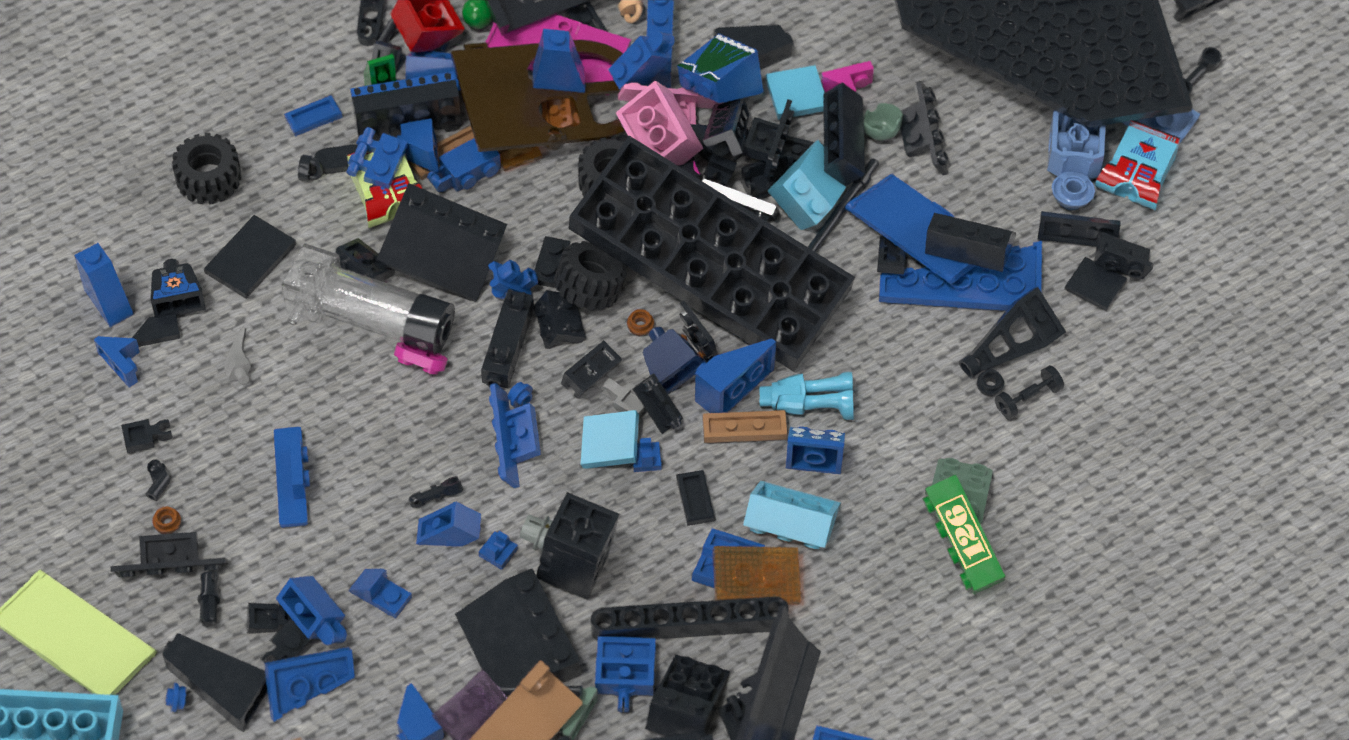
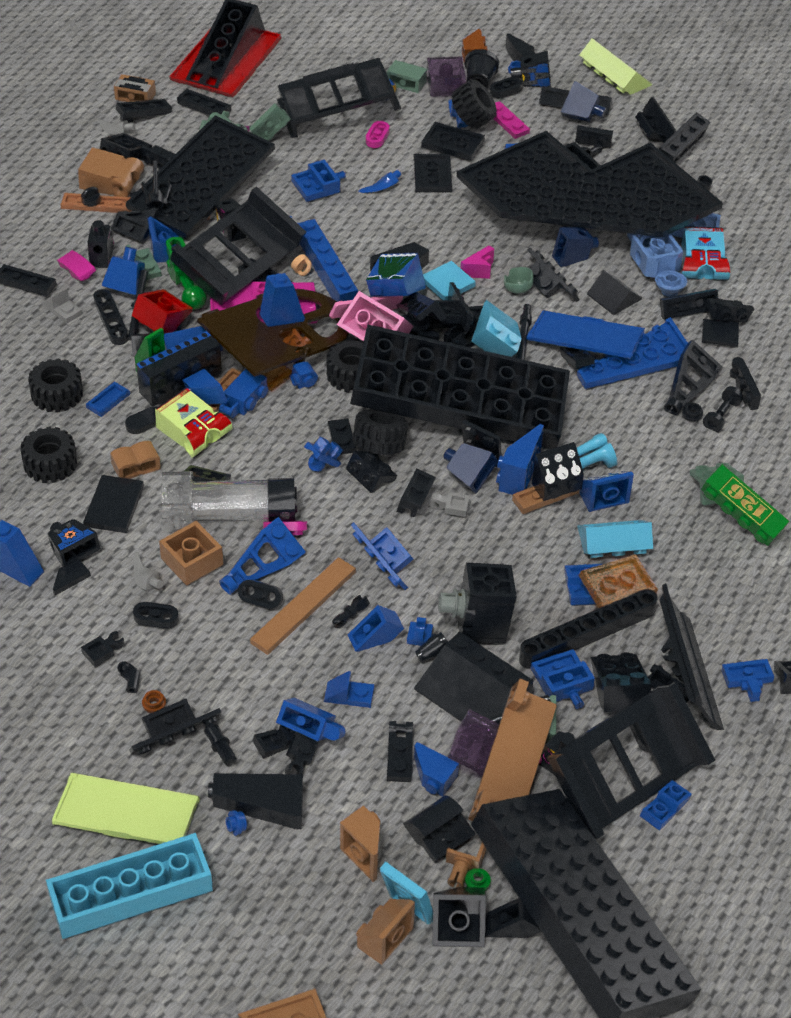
camera: 25 degrees left, 10 degrees down
(118, 354) = (51, 601): blue slope -> none
(223, 416) = (156, 615): none -> black plate
(259, 94) = (55, 385): none -> black tyre
(291, 476) = (235, 636): blue bracket -> none
(296, 353) = (191, 552): none -> medium nougat brick
(299, 209) = (135, 460): none -> medium nougat brick
(301, 678) = (330, 769): blue wing -> none
(305, 168) = (123, 432): black tile -> none
(348, 435) = (261, 594): none -> black plate
(384, 162) = (187, 403): blue plate -> none
(389, 464) = (302, 606): none -> medium nougat tile
(391, 689) = (400, 752): none -> black plate
(404, 376) = (280, 540): none -> blue plate
(441, 243) = (258, 444): black slope -> none
(497, 572) = (431, 647): none -> black cone
(507, 339) = (342, 492): black brick -> none
(520, 394) = (374, 526): blue plate -> none
(549, 164) = (303, 375): none -> blue plate
(609, 439) = (457, 533): medium azure tile -> none
(637, 316) = (430, 453): dark orange plate -> none
(642, 59) = (338, 283): blue brick -> none
(647, 456) = (487, 535): blue tile -> none
(658, 404) = (476, 496): black hinge -> none
(695, 497) = (539, 551): black tile -> none
(761, 408) = (557, 472): none -> black slope
(843, 134) = (500, 293): black brick -> none
(969, 242) = (629, 326): black slope -> none
(979, 96) = (573, 245): none -> dark blue torso
(994, 180) = (612, 293): none -> black slope
(1078, 366) = (745, 382): none -> black plate

